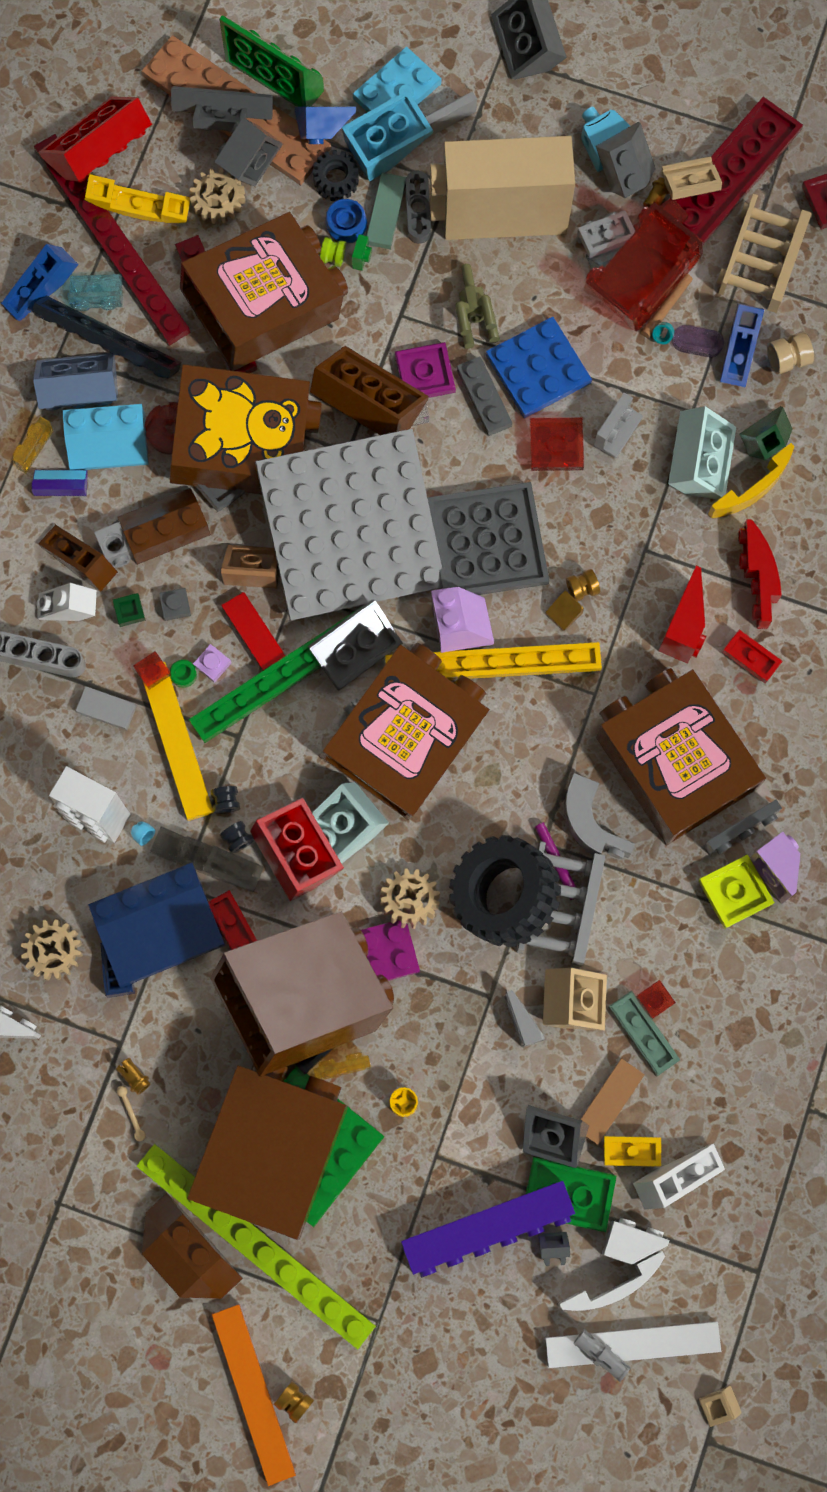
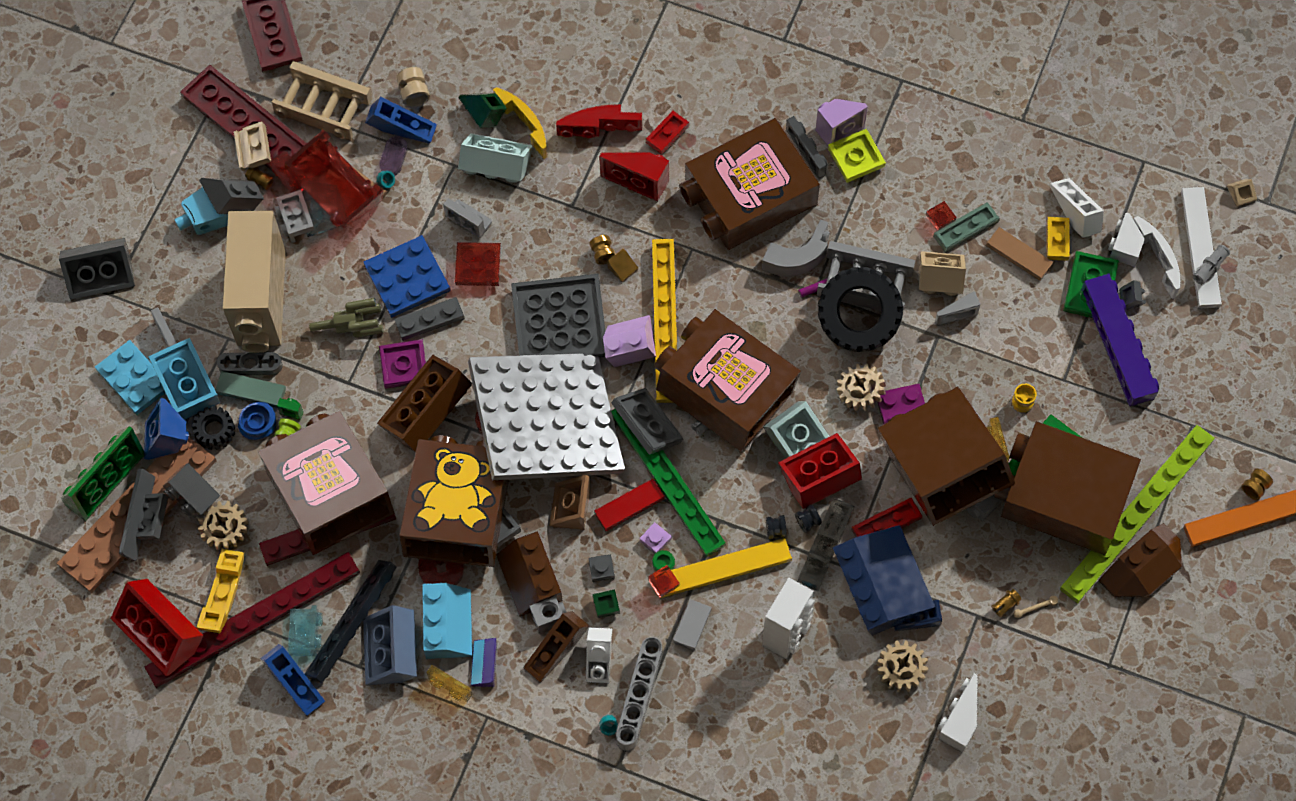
camera: 85 degrees left, 10 degrees down
(554, 1136) = (1049, 289): dark grey slope -> none

